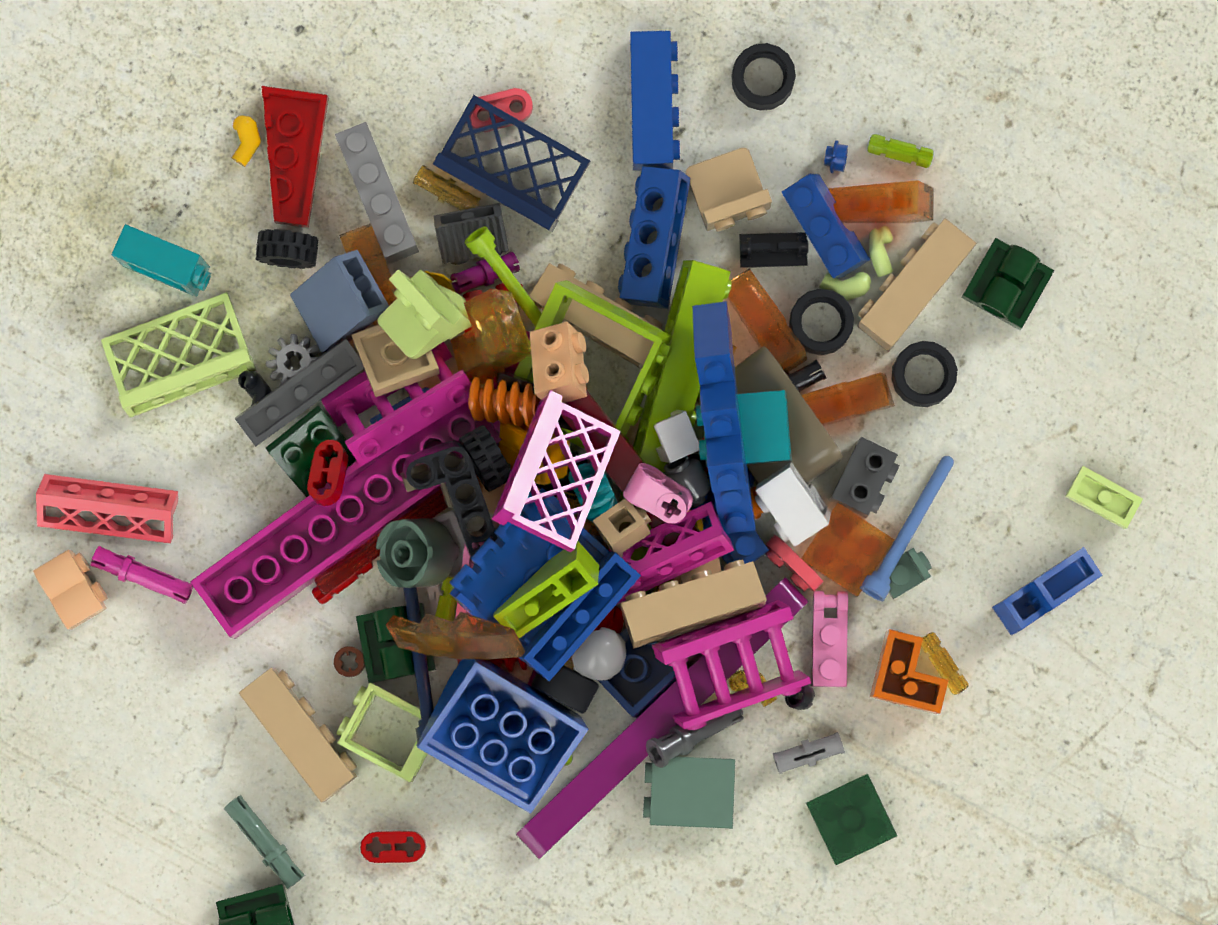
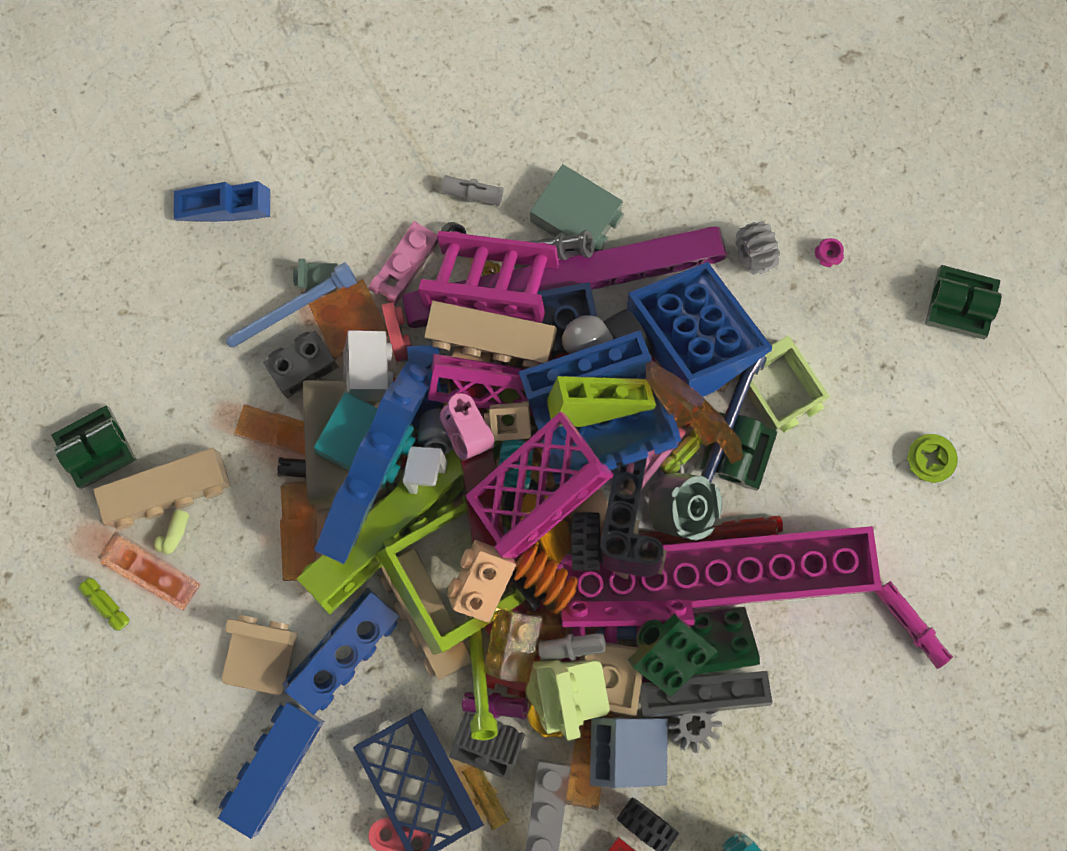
camera: 150 degrees left, 5 degrees down
(70, 588) = (979, 646): light nougat brick -> none
(105, 502) = (912, 701): coral fence -> none
(180, 382) = (800, 767): yellowish green fence -> none
(195, 759) = (945, 455): none -> lime gear
(253, 385) = (737, 725): black arm -> none
(264, 842) = (924, 359): sand green pin -> none
(298, 734) = (854, 425): tan brick -> none
(322, 471) = (714, 606): red beam -> none
(338, 663) = (786, 449): copper bush -> none
(351, 403) = (670, 653): none -> dark green plate
(393, 838) = (829, 296): red beam -> none
(425, 896) = (832, 245): none -> dark pink plate
(443, 356) = (572, 647): none -> light grey axle
(489, 857) = (757, 247): none -> light grey gear
(771, 52) = (144, 733): black tyre -> none
(773, 250) = (254, 584): black hinge -> none
(832, 240) = (202, 570): blue arch -> none
(835, 300) = (232, 495): black tyre -> none
(836, 157) = (156, 629): blue plate -> none
(849, 288) = (217, 517): yellowish green arm -> none
(851, 819) = (471, 129): clear green plate -> none
(897, 679) = (370, 202): orange brick -> none
(936, 351) = (184, 402): black tyre -> none
(944, 663) = (332, 197): clear yellow axle -> none
(1104, 497) = (134, 245): yellowish green plate -> none

